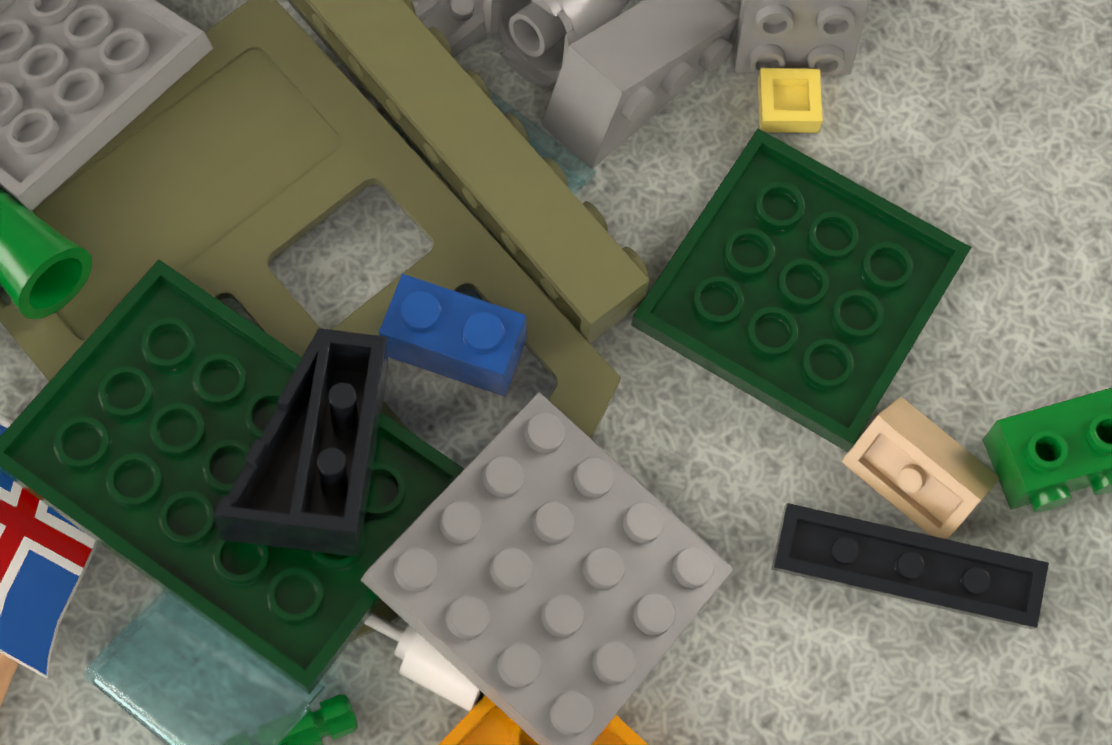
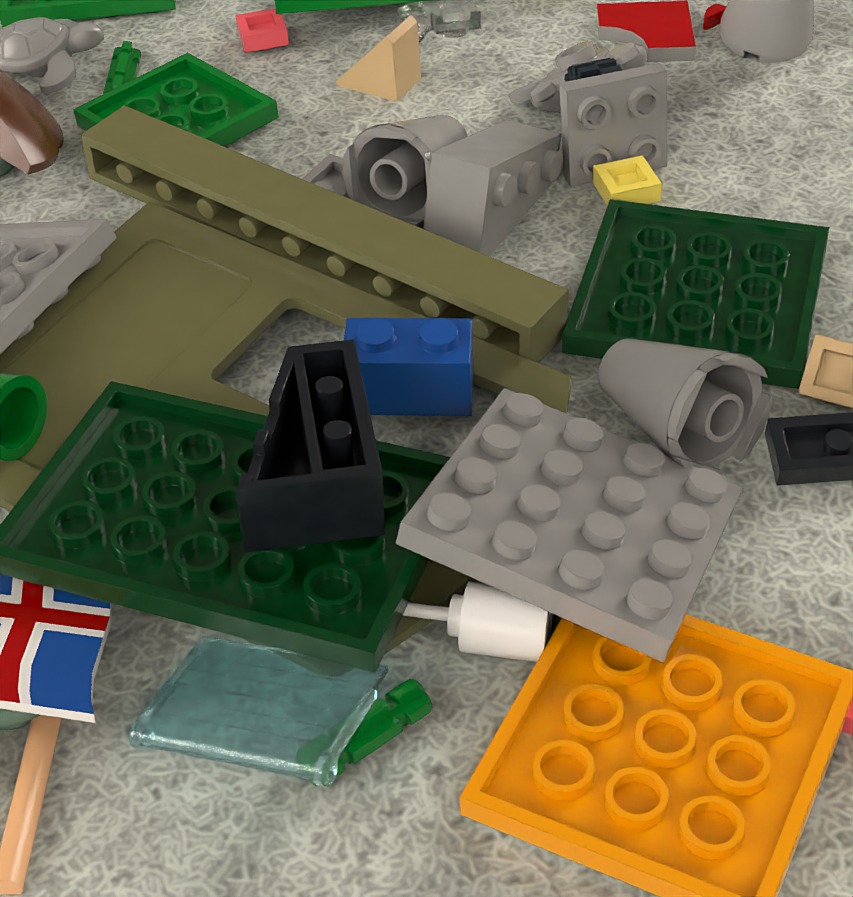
camera: 10 degrees left, 25 degrees down
(714, 450) = (693, 396): none -> light grey cone

